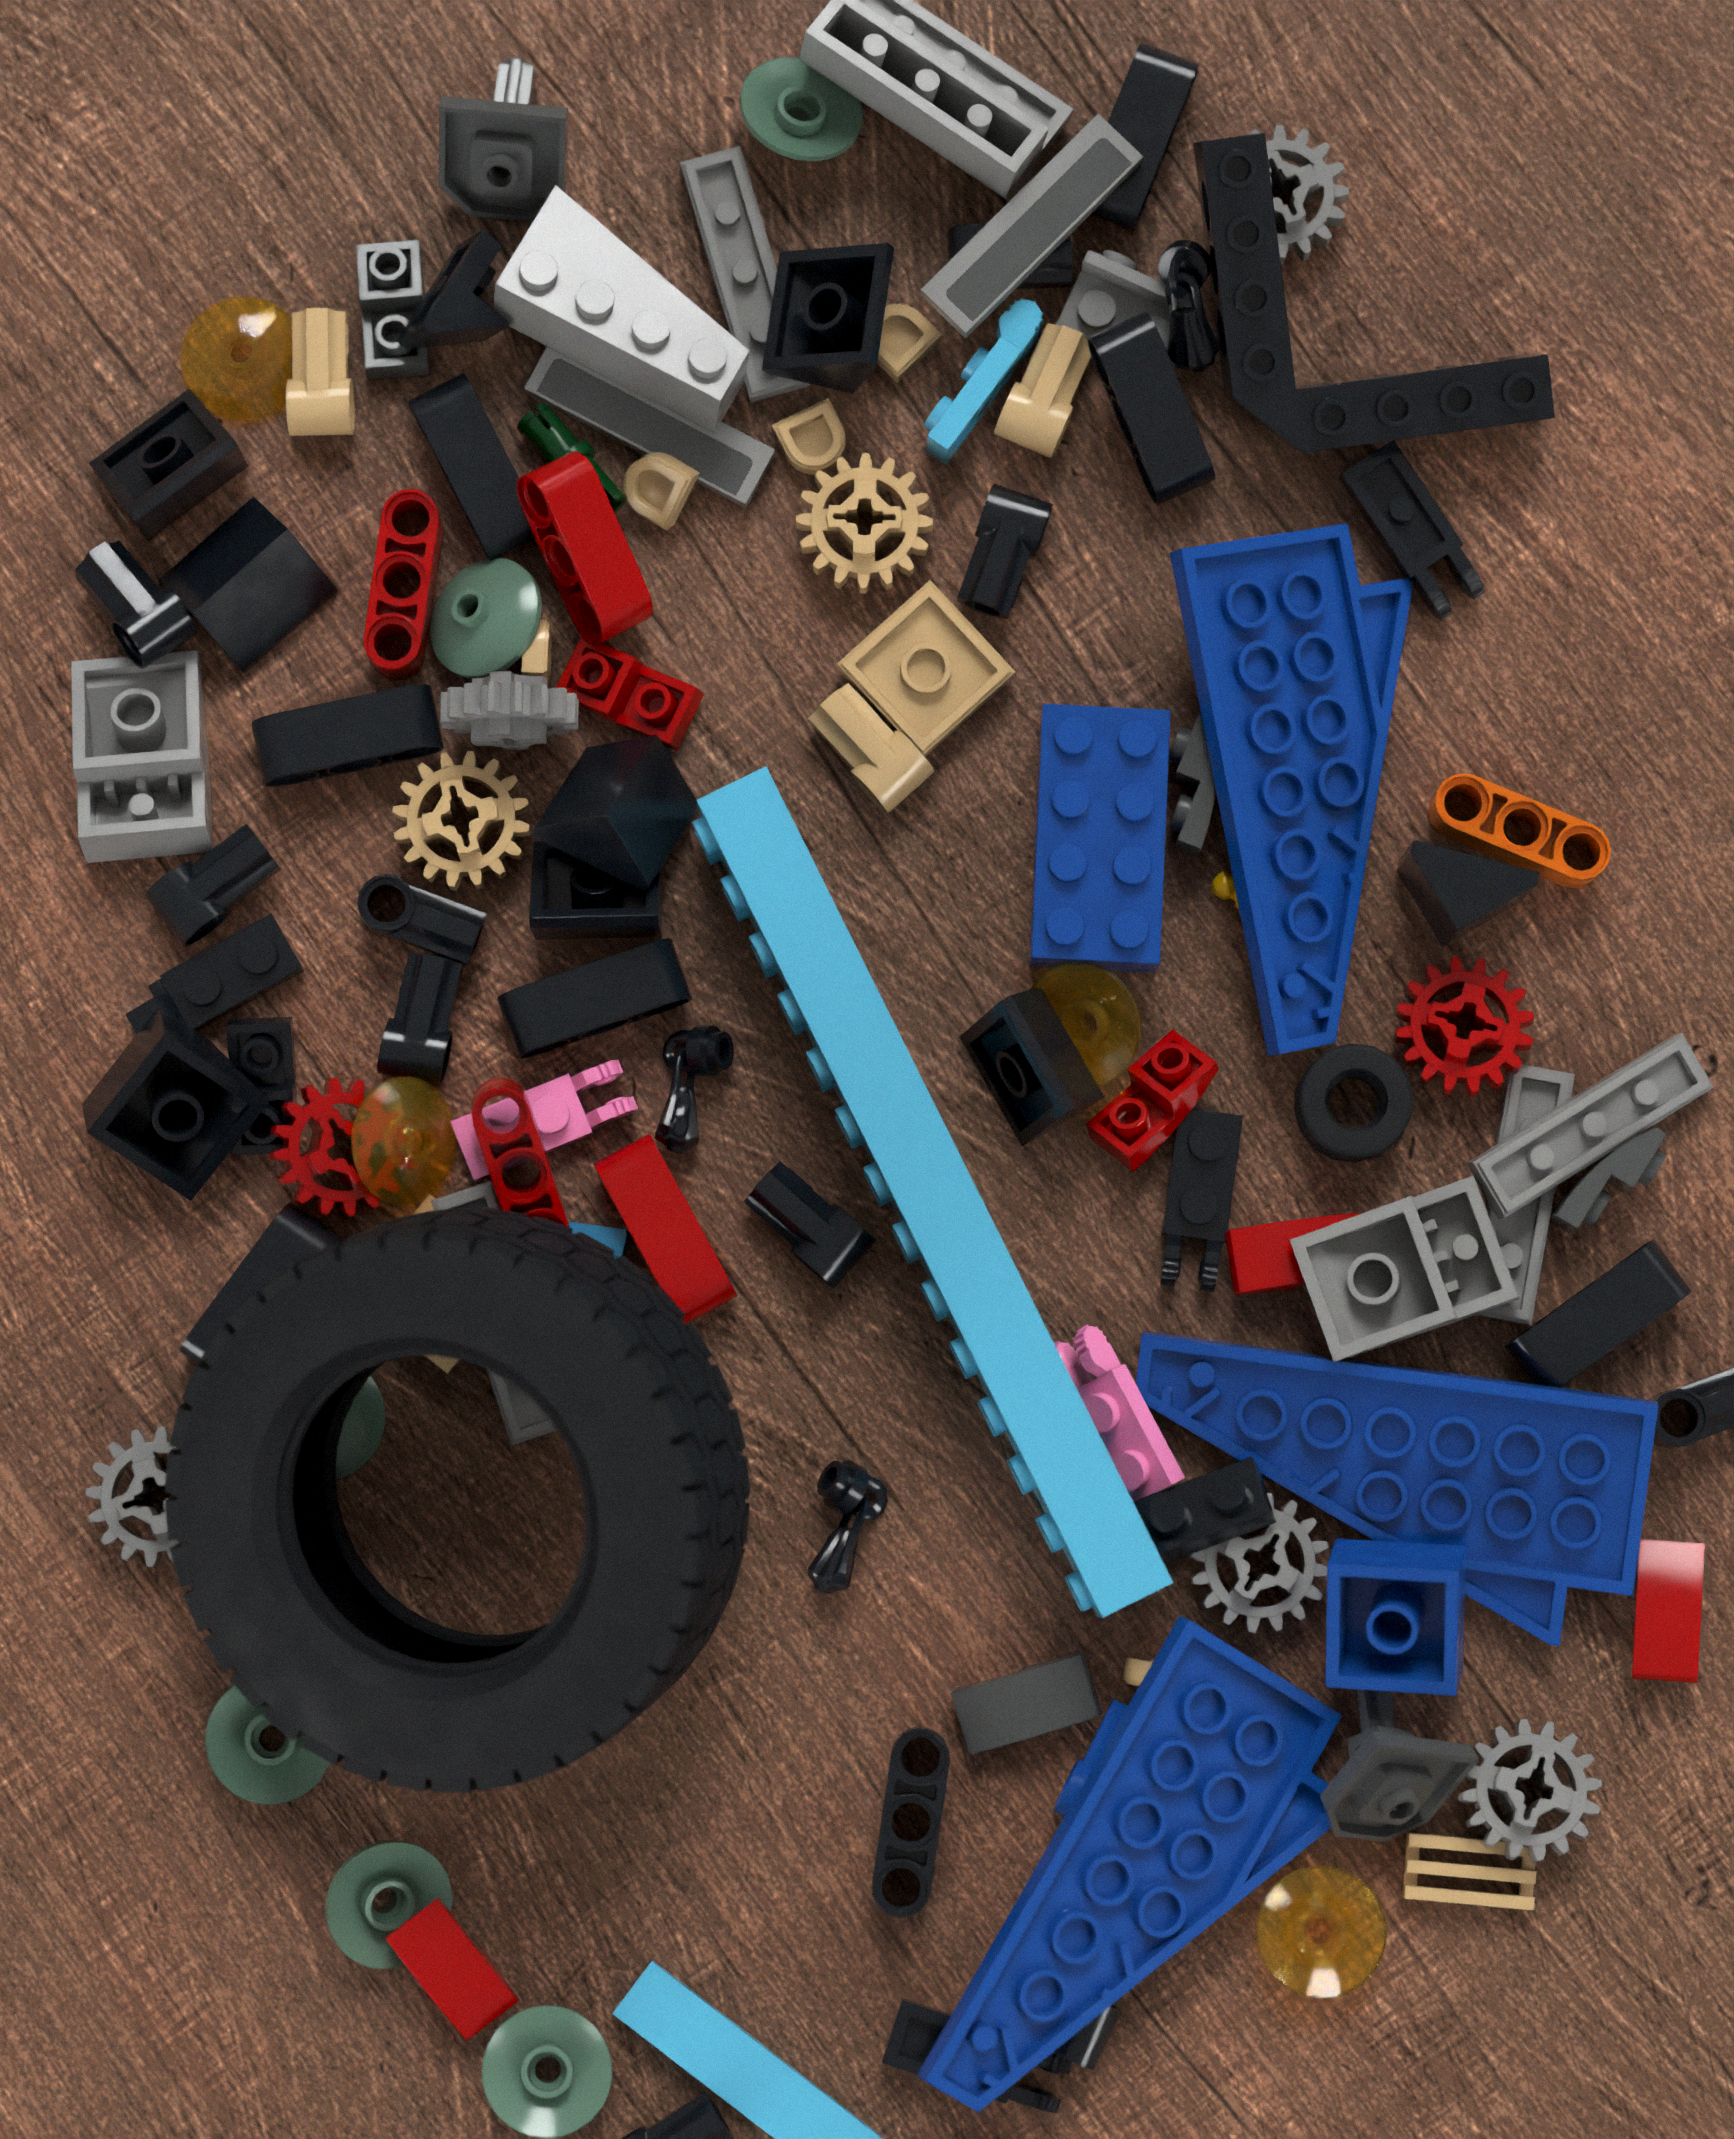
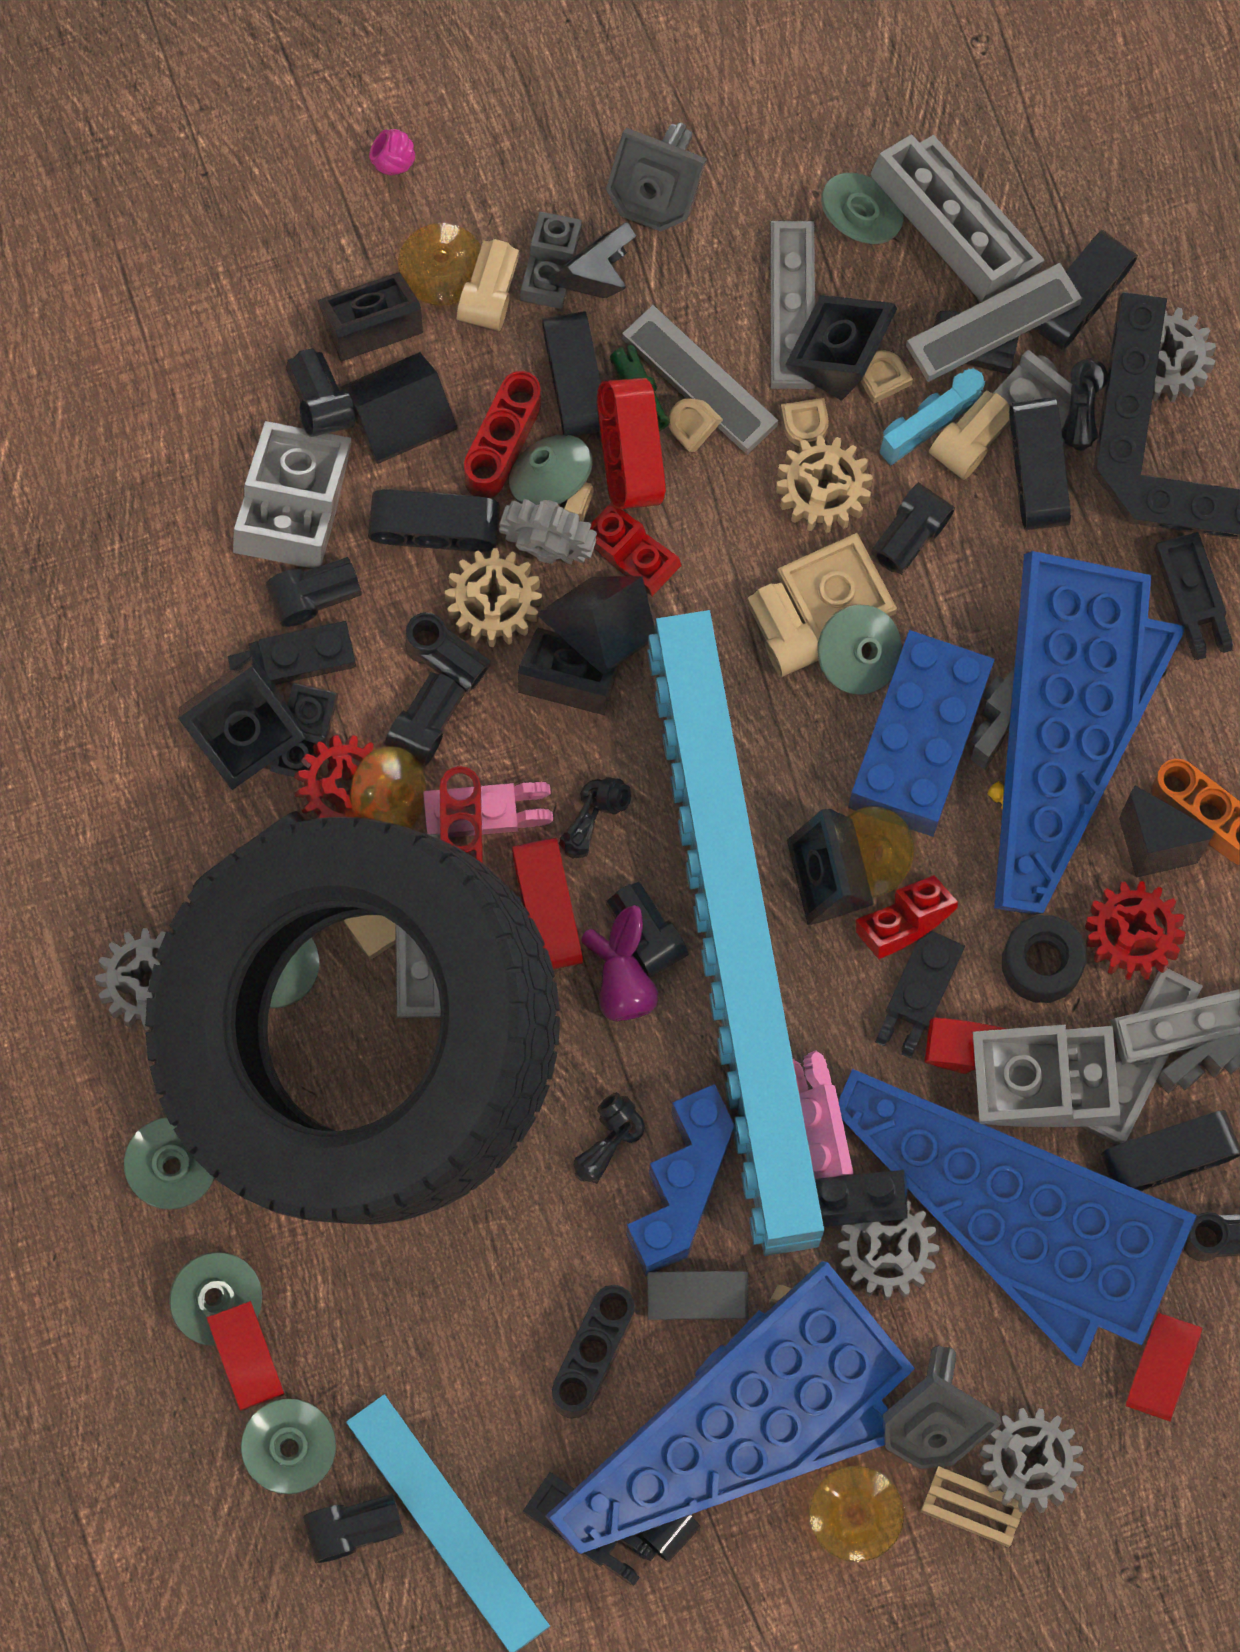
camera: 15 degrees right, 10 degrees down
(126, 219) = (392, 152): none -> dark pink piece
(594, 998) = (546, 739): black beam -> none
(618, 315) = (699, 302): wedge -> none
(804, 1311) = (625, 987): none -> magenta piece
(958, 739) = (842, 645): none -> sand green dish
(964, 1555) = (683, 1181): none -> blue brick
(1395, 1616) = (971, 1308): blue brick -> none

